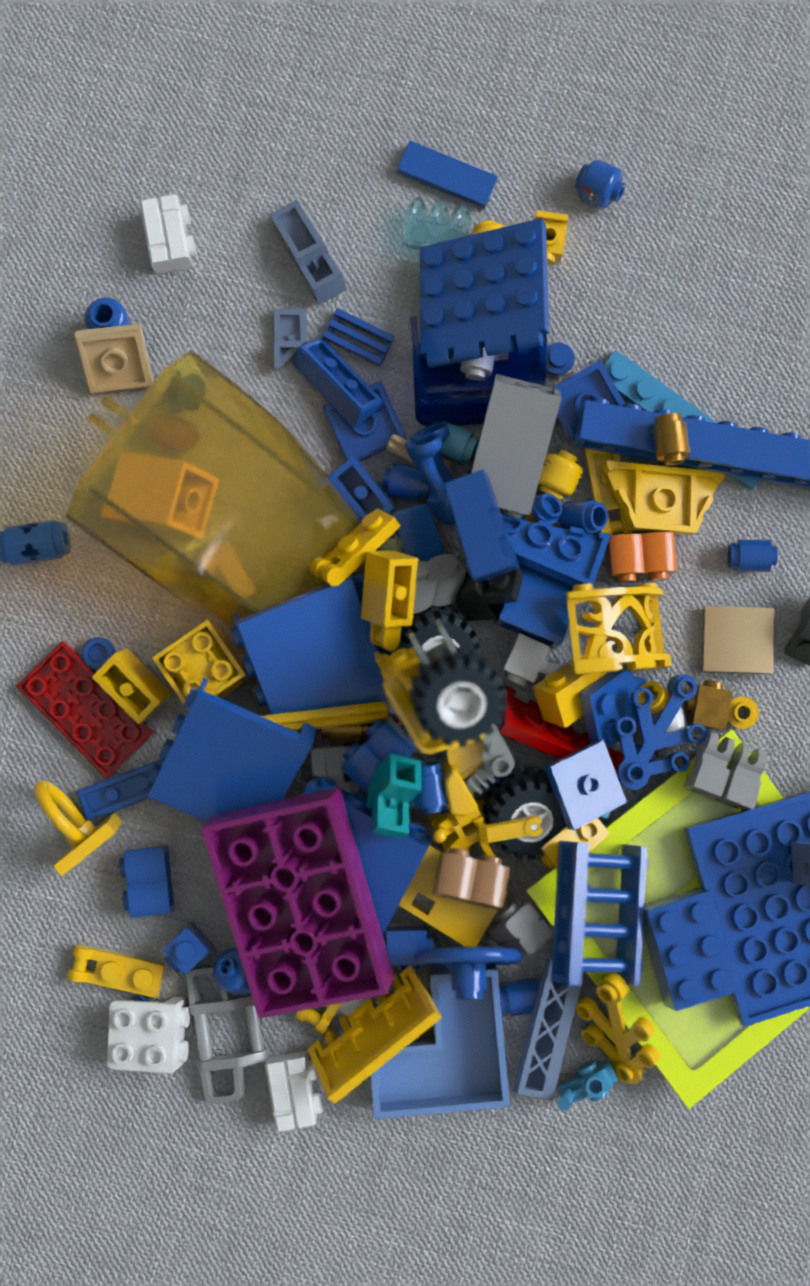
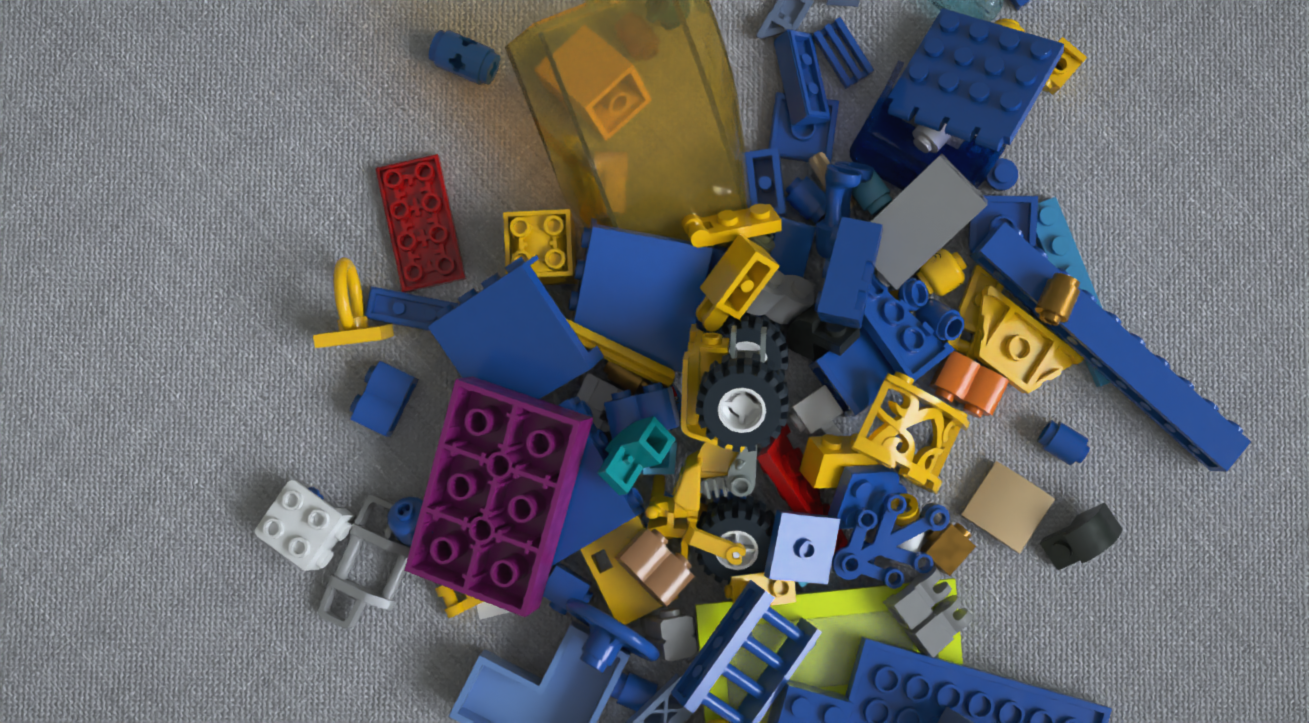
camera: 30 degrees right, 0 degrees up
(97, 652) = (461, 183): blue tile -> none
(117, 971) = (312, 457): yellow plate -> none
(132, 685) = (472, 226): yellow brick -> none
(187, 949) = (381, 475): blue brick -> none
(292, 1091) = (394, 649): white brick -> none
(373, 1035) = (491, 645): yellow hinge -> none
(432, 787) = (669, 471): blue brick -> none
(600, 184) = (1129, 48): blue head -> none
(753, 712) = (979, 578): yellow plate -> none

